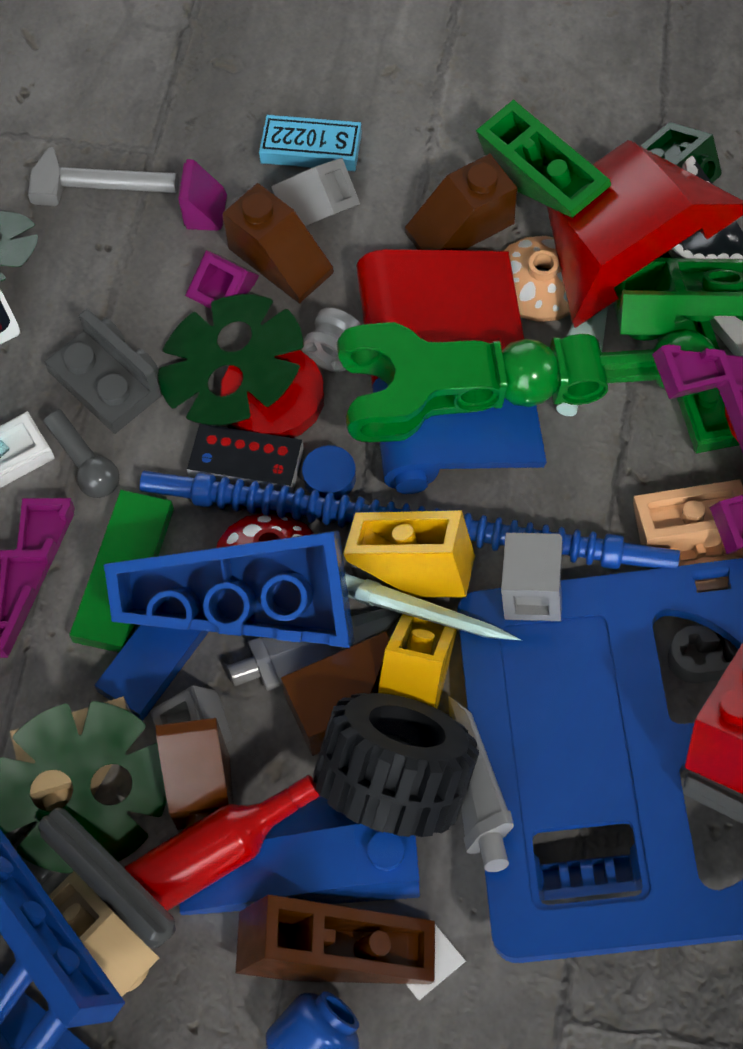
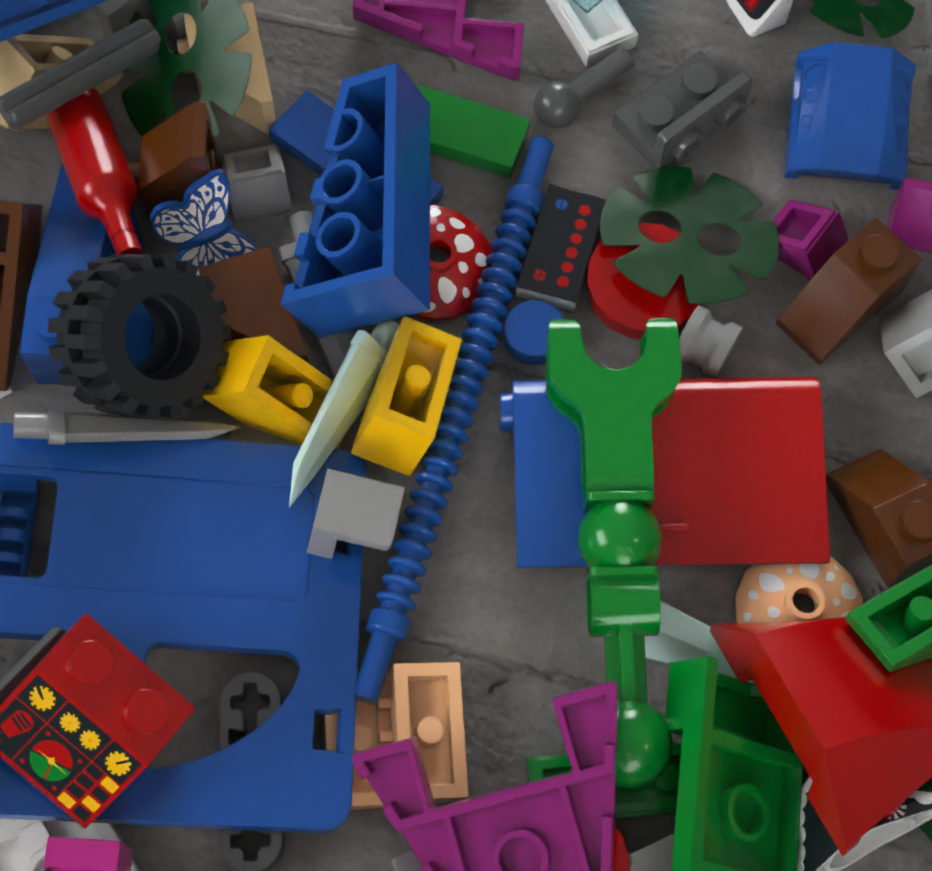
camera: 90 degrees right, 5 degrees up
(109, 251) = (850, 114): none -> blue slope
(266, 747) = (200, 223): none -> blue animal

